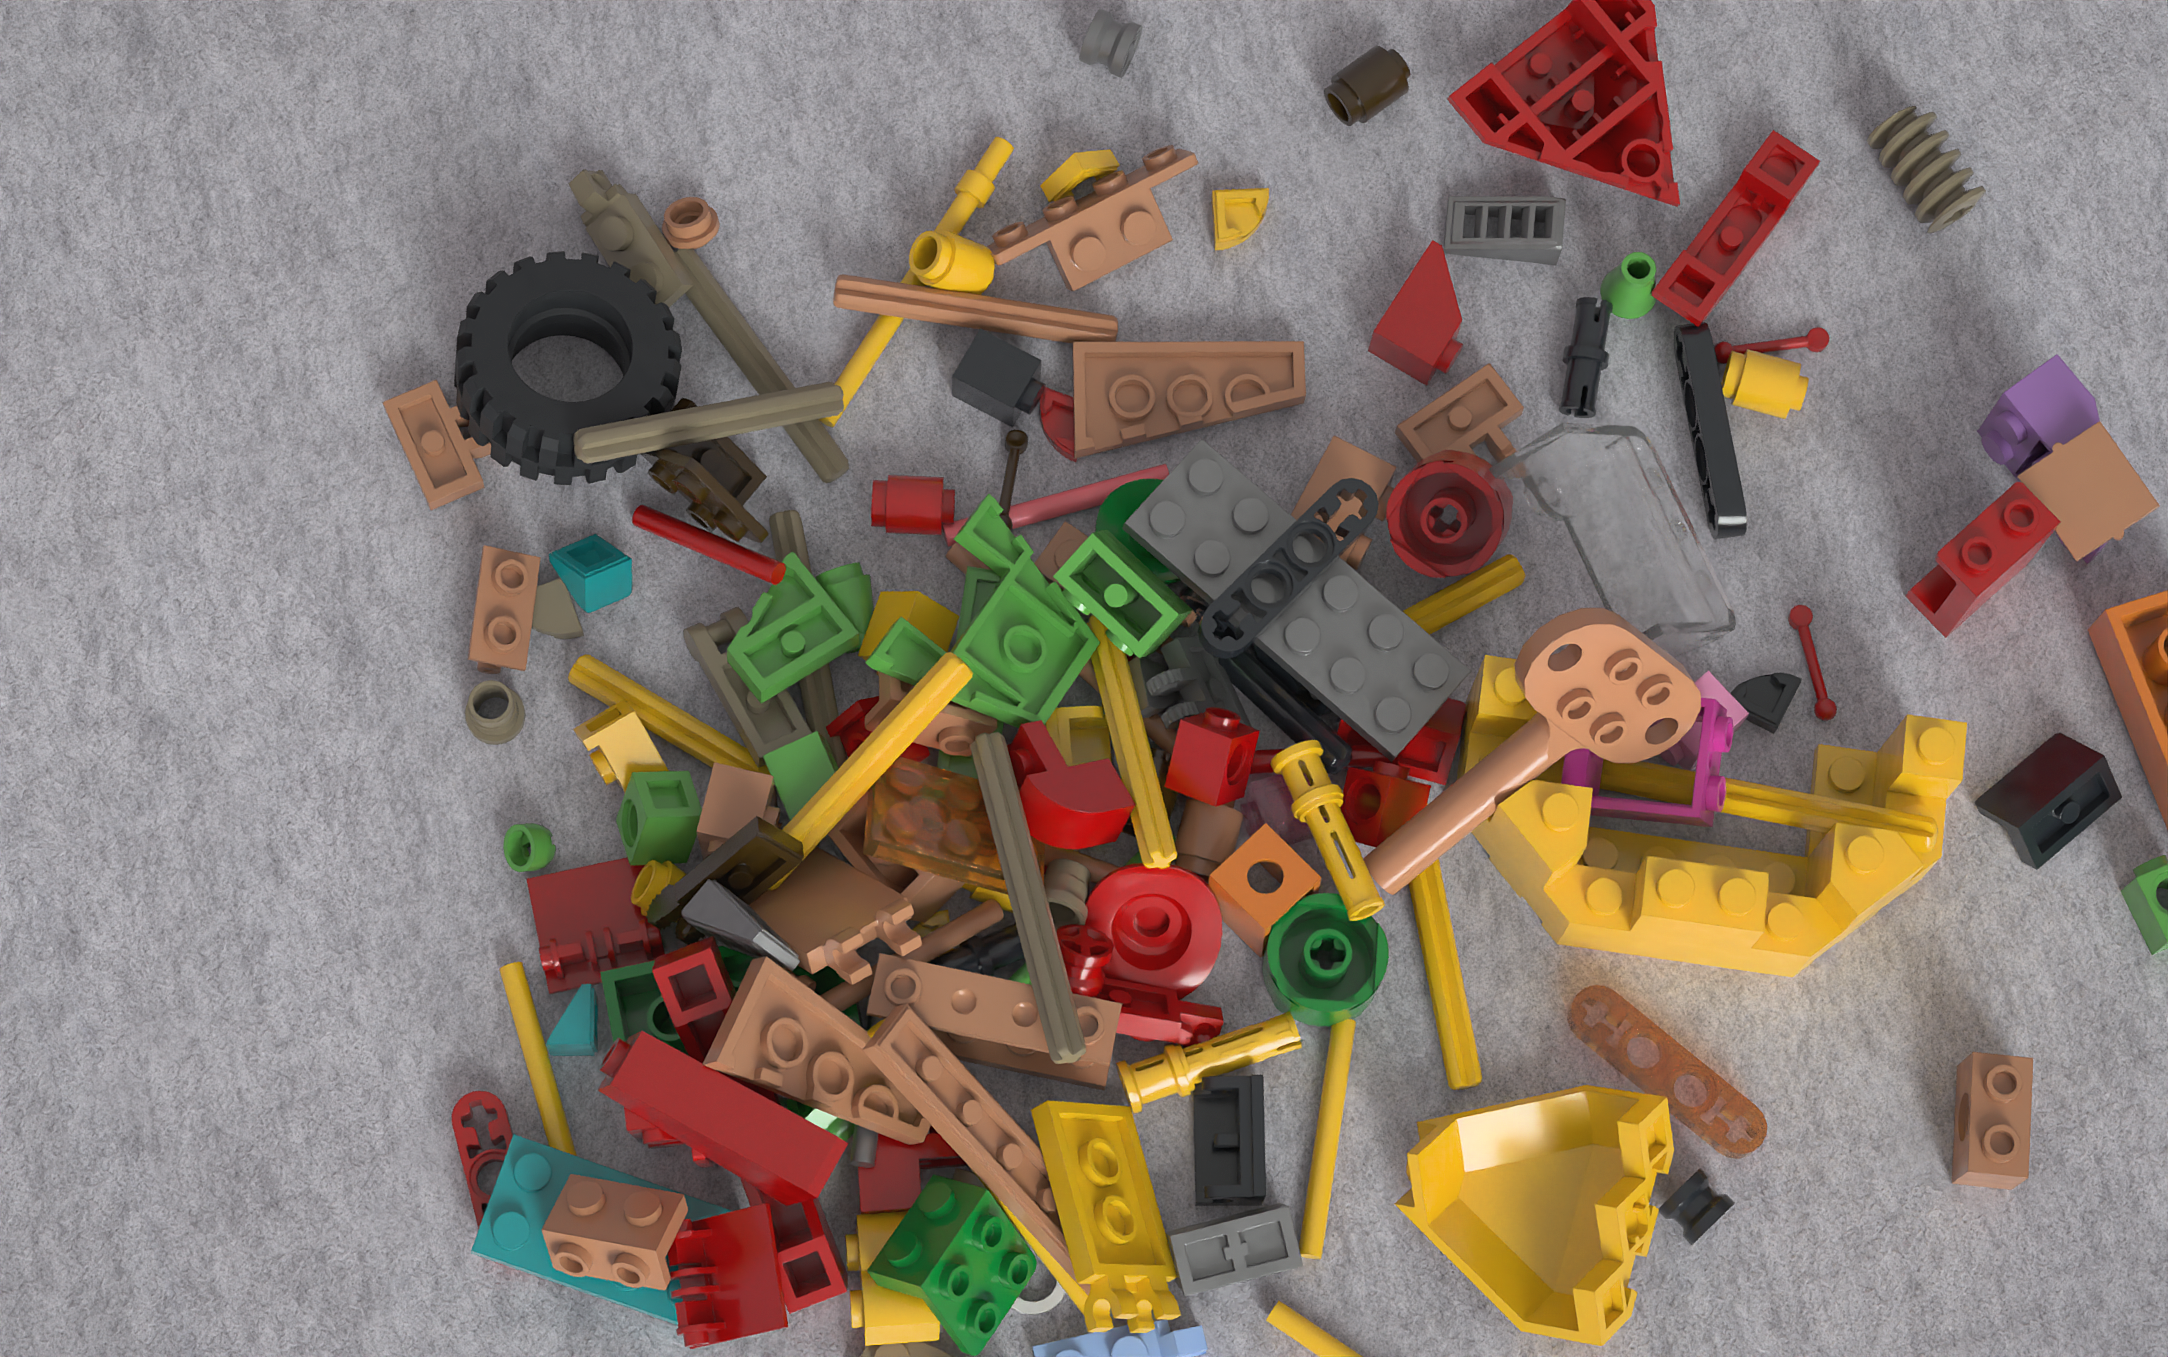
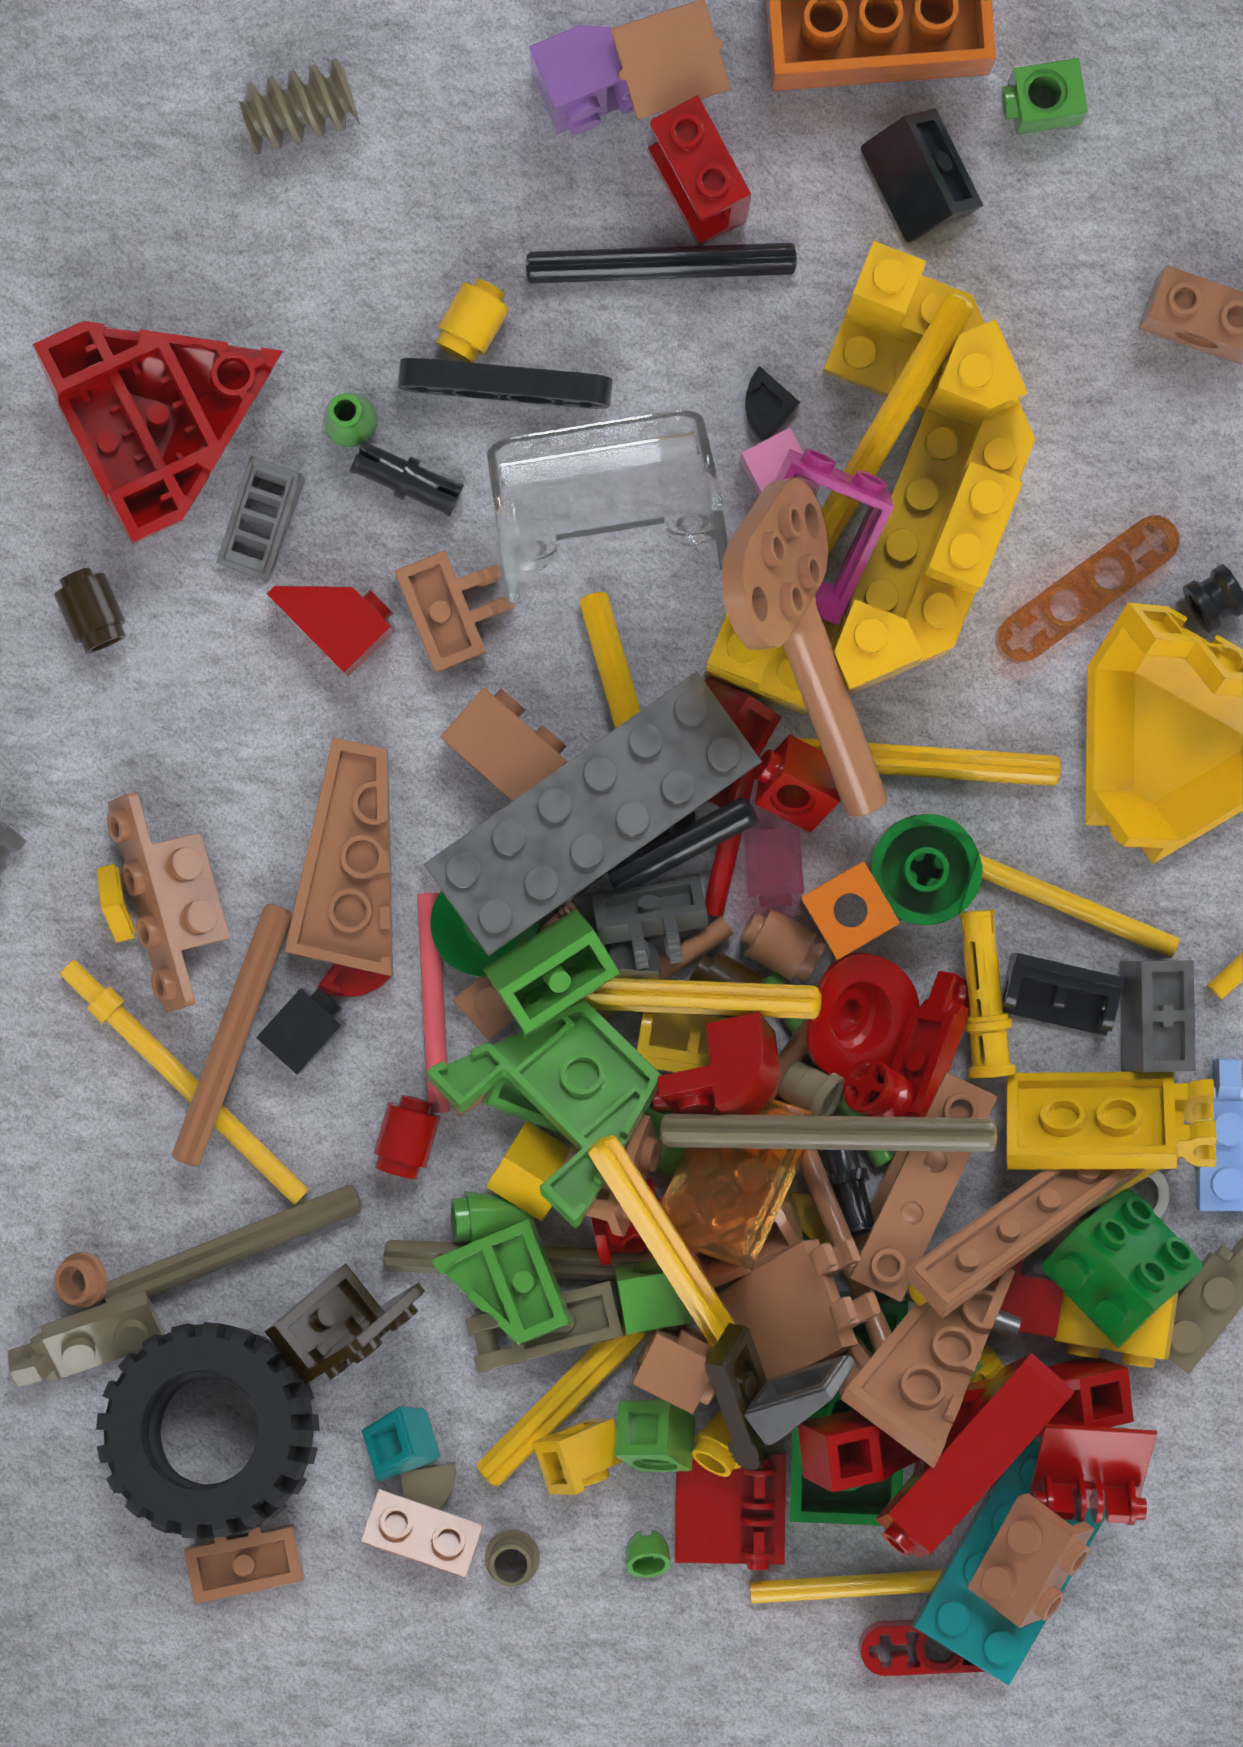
camera: 70 degrees left, 15 degrees up
(578, 1027) = (824, 1544): teal slope -> none
(707, 422) = (298, 1315): dark tan axle -> none
(709, 544) = (402, 1337): red bar -> none
(951, 262) = (182, 1046): yellow brick -> none
(1016, 444) = (365, 1025): dark brown hinge -> none
(1212, 757) = (723, 927): red brick -> none
(1237, 214) = (187, 764): yellow tile -> none
(1284, 564) = (577, 814): black beam -> none
(1321, 801) = (887, 830): yellow pin -> none
(1419, 502) = (539, 650): red brick -> none
(1736, 229) = (316, 304): red slope -> none
(1800, 619) = (699, 350): red hinge -> none
(1815, 341) = (435, 259): red hinge -> none
(1878, 559) = (661, 263): none -> black axle

